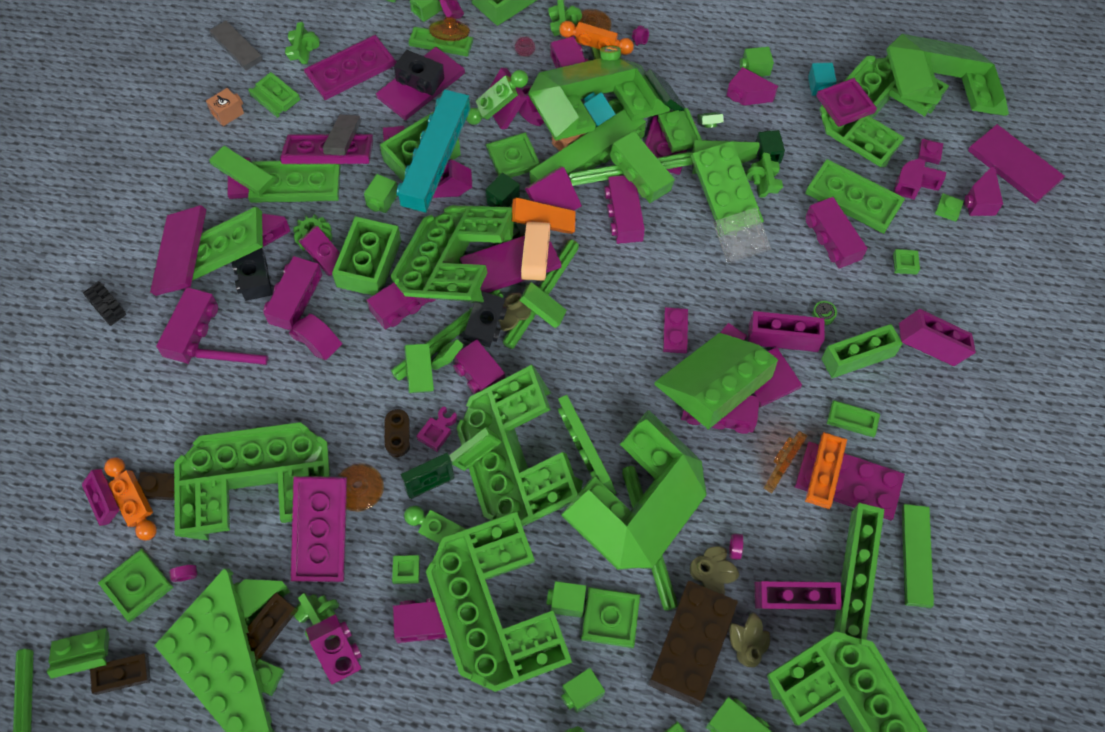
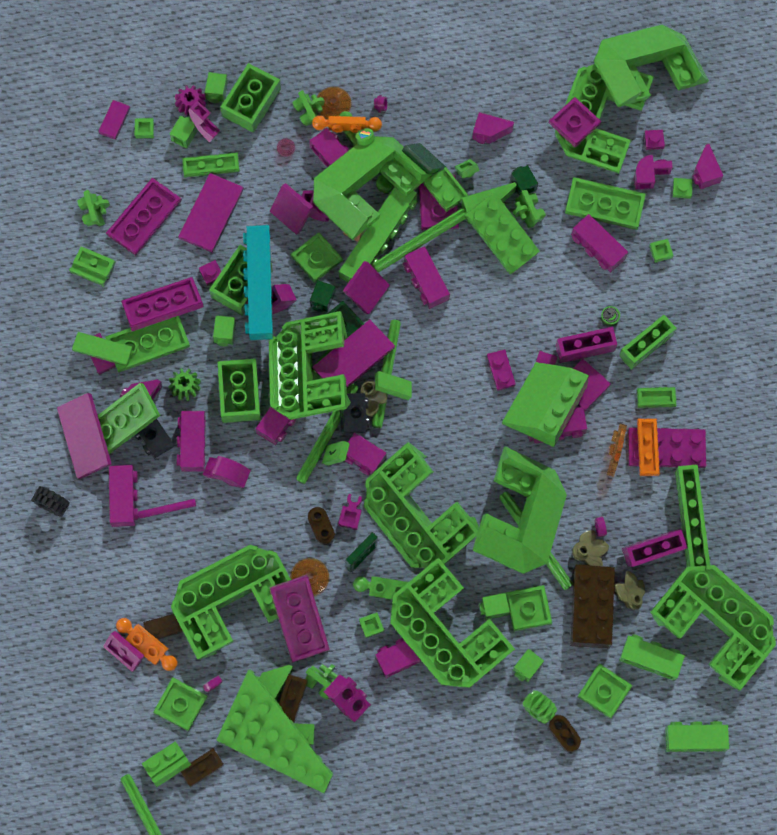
camera: 20 degrees left, 10 degrees up
(225, 106) = (57, 292): nougat brick -> none
(236, 45) = (34, 227): flat silver tile -> none
(320, 249) = (201, 397): magenta plate -> none
(341, 135) = (169, 287): flat silver tile -> none
(418, 368) = (317, 470): bright green tile -> none
(419, 72) = (202, 200): black brick -> none
(449, 29) = (214, 153): clear orange dish -> none
(475, 449) = (387, 519): bright green tile -> none
(497, 97) = (288, 211): bright green plate -> none
(530, 211) = (365, 308): orange tile -> none
(535, 251) = (372, 343): light nougat beam -> none
(583, 442) = (462, 485): bright green plate -> none
(598, 108) = (374, 195): teal brick -> none
(641, 167) = (429, 241): bright green brick -> none
(742, 235) = (527, 271): clear plate -> none
(758, 61) = (488, 99): bright green brick -> none
(821, 77) = (547, 99): teal brick -> none
(917, 556) = (730, 488): bright green tile -> none
(936, 337) = (700, 314): magenta brick -> none
(1016, 163) = (725, 128): magenta tile -> none

